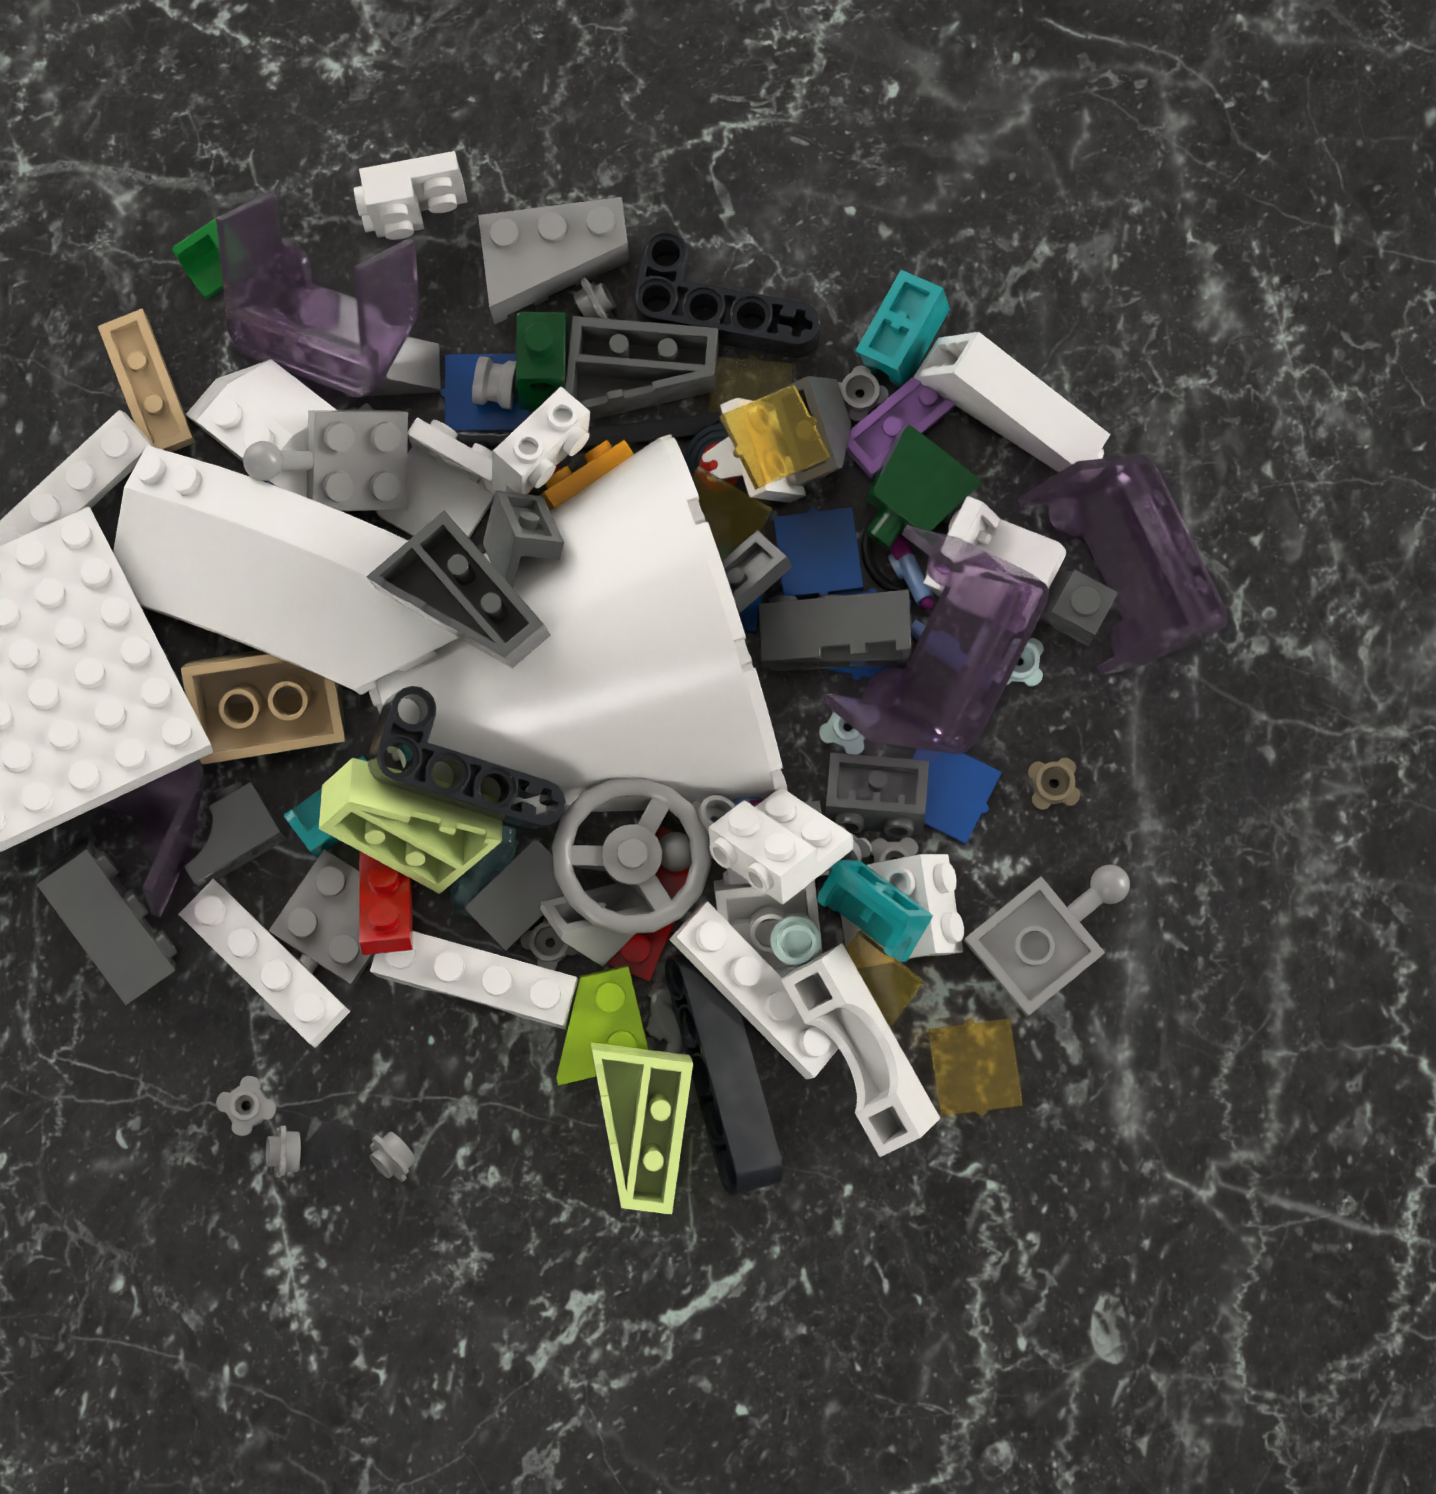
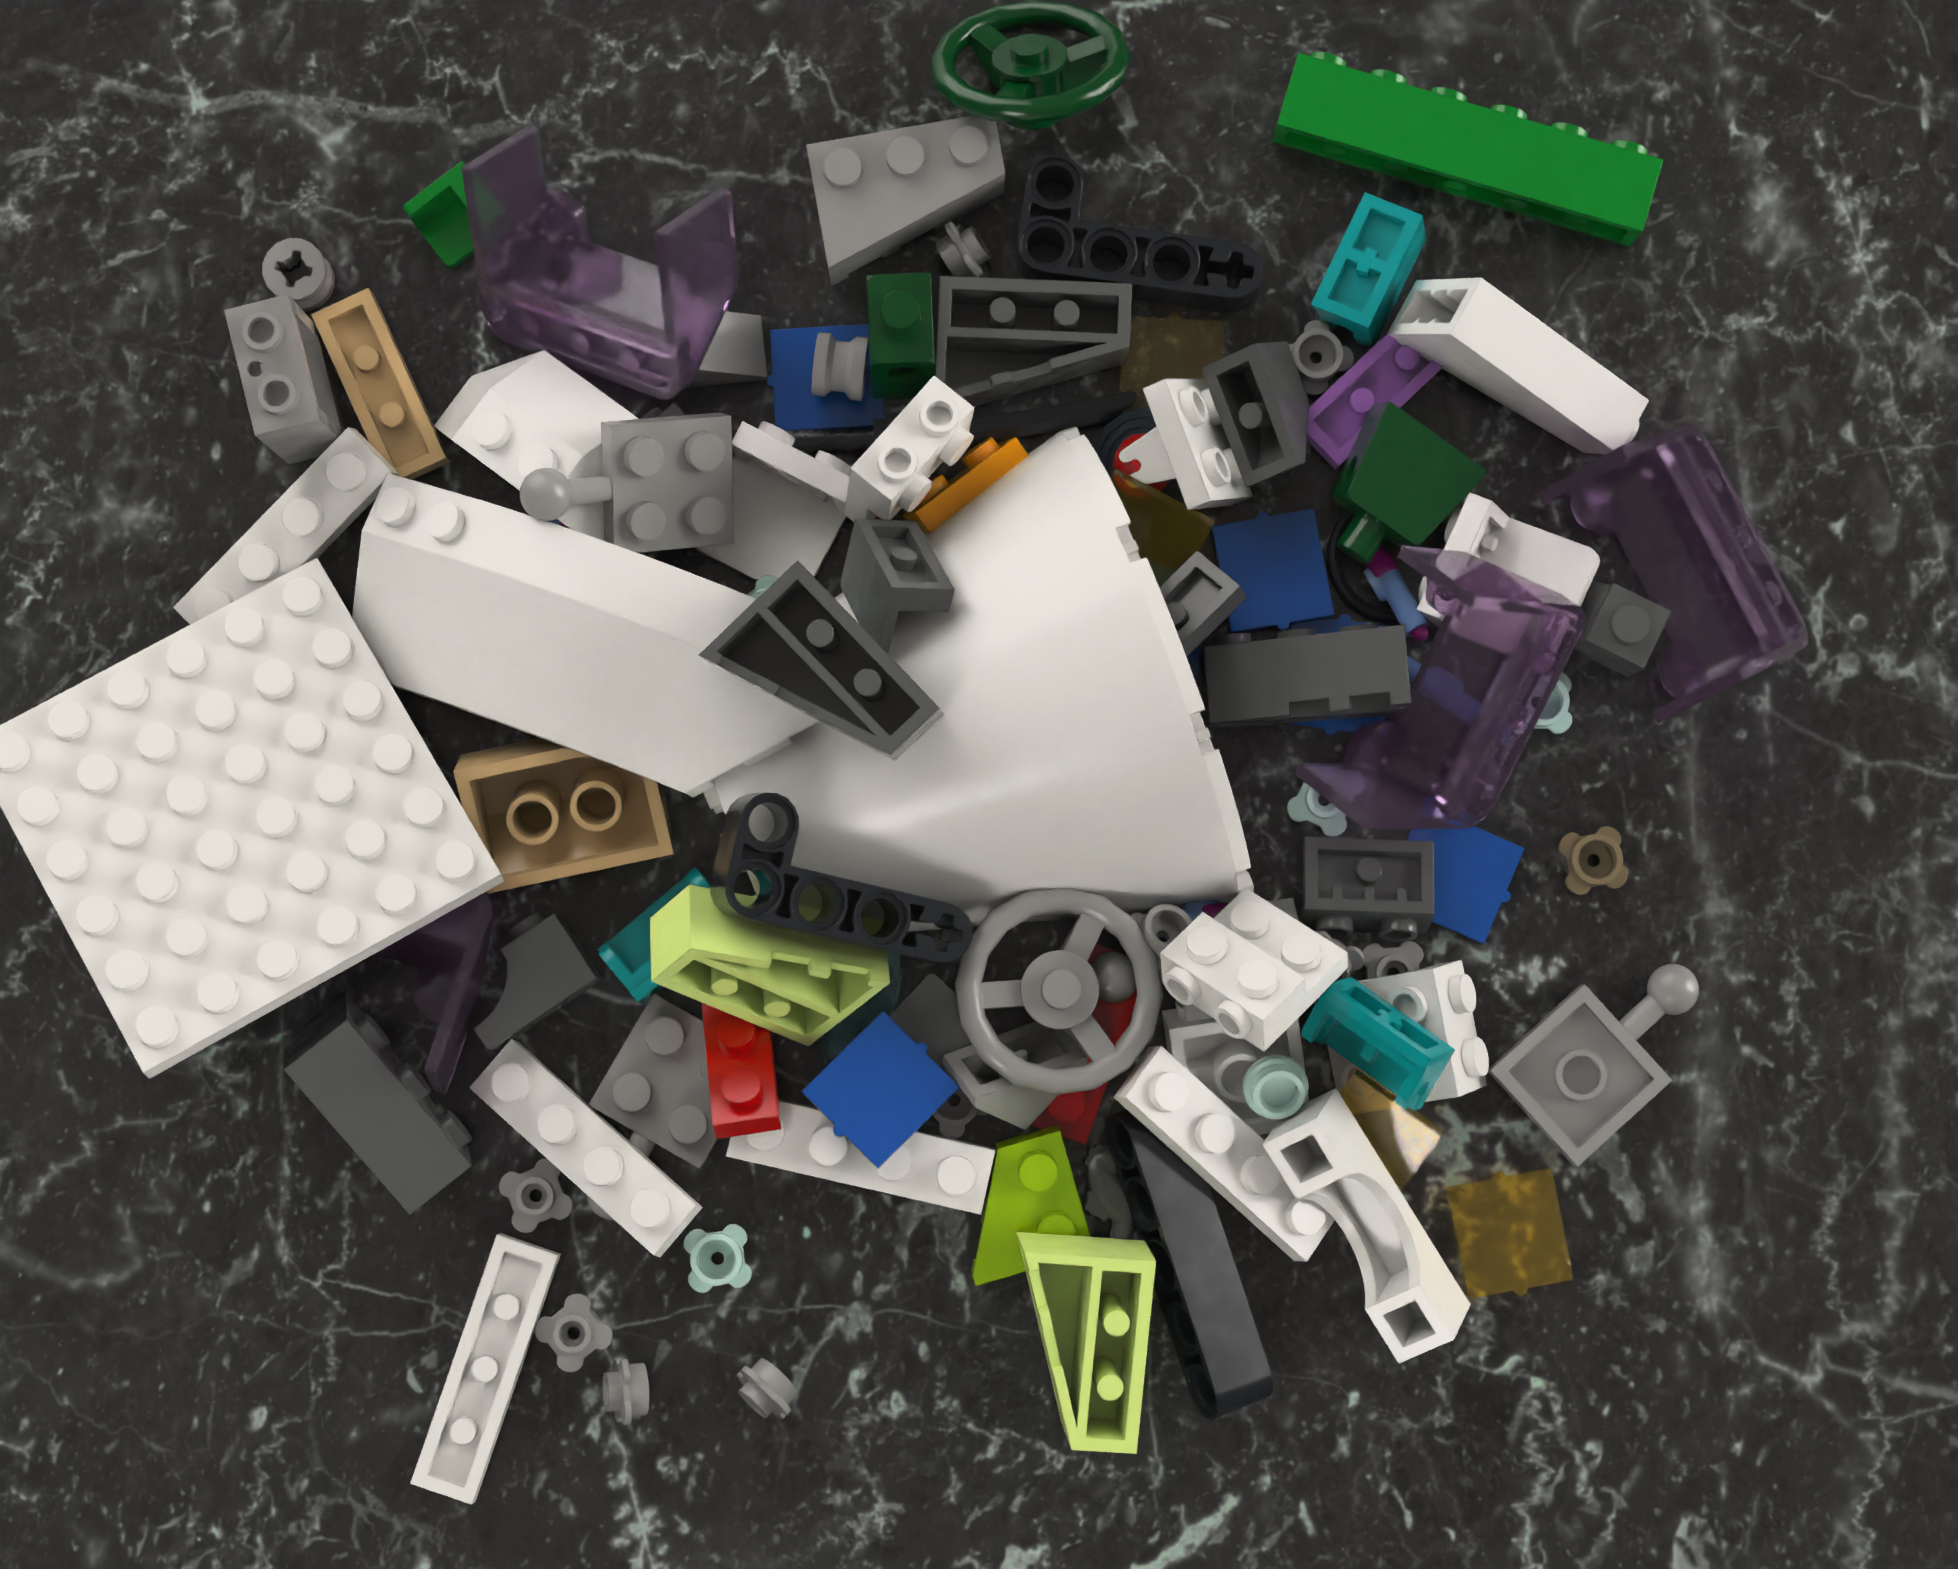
camera: 10 degrees left, 5 degrees up
(80, 380) = (295, 396): none -> light grey window
(96, 306) = (310, 282): none -> light grey wheel
(176, 1130) = (485, 1368): none -> white plate
(237, 1005) = (526, 1211): none -> light grey plate
(349, 1046) = (708, 1274): none -> light aqua plate
(399, 191) = (696, 117): white plate -> none
(490, 925) = (880, 1089): none -> blue piece
(653, 170) = (1032, 72): none -> dark green piece
(774, 437) = (1217, 428): clear yellow piece -> none
(981, 241) = (1467, 148): none -> green brick

